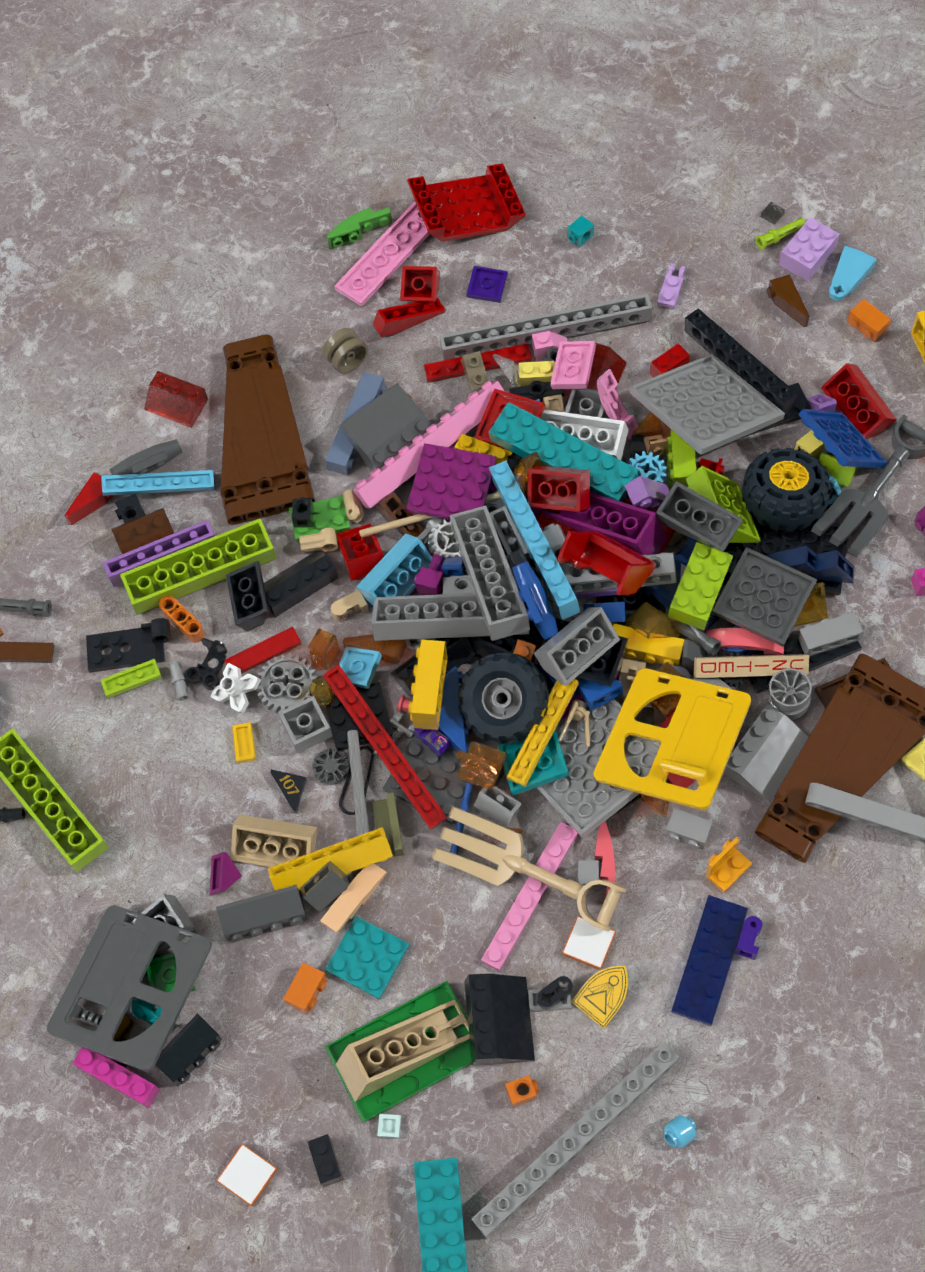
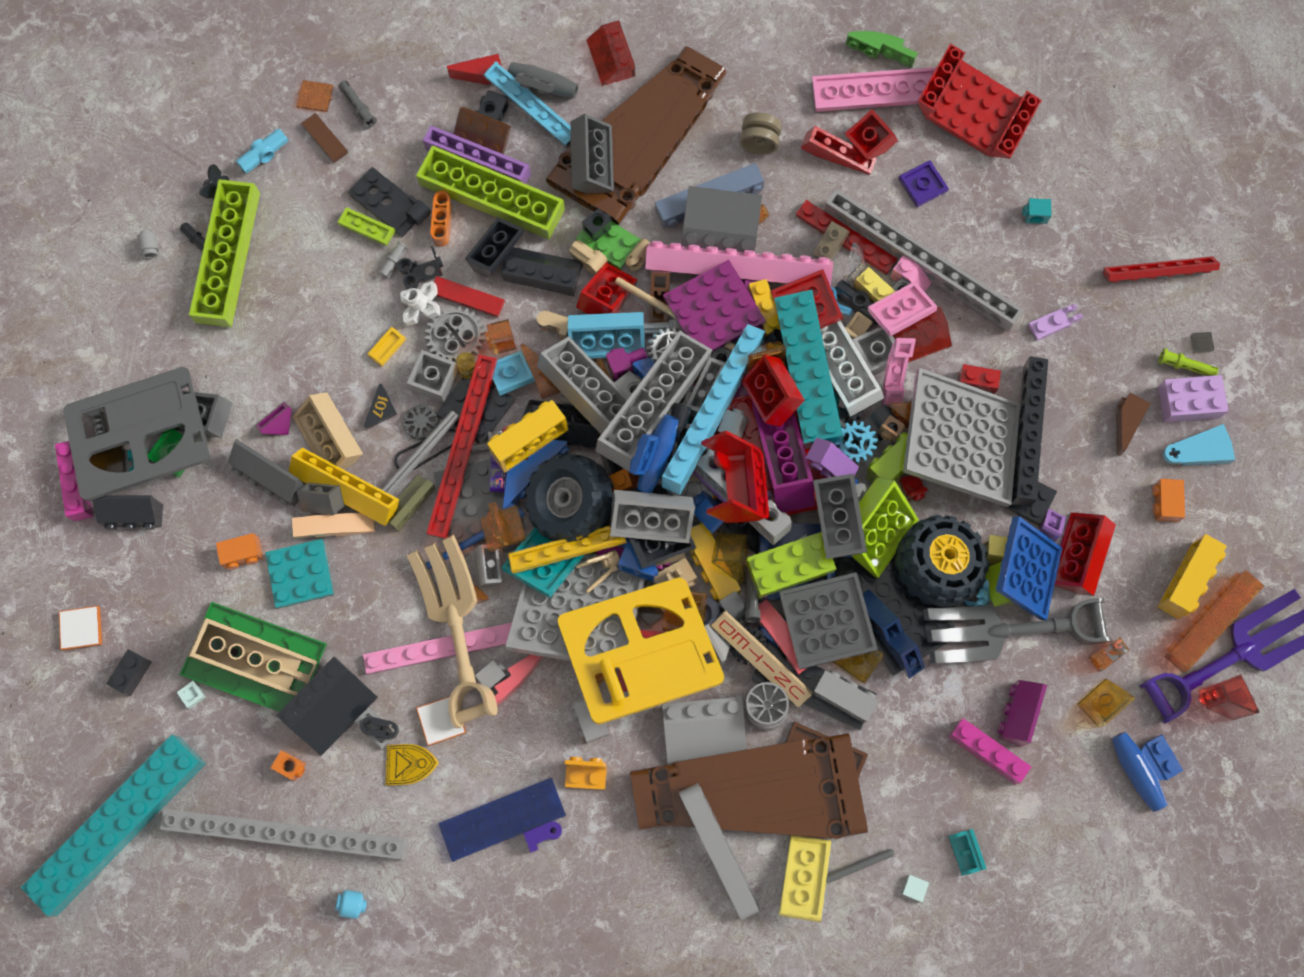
camera: 45 degrees right, 10 degrees up
(245, 471) = (591, 155): none -> dark grey slope
(695, 195) = (1164, 268): none -> red plate

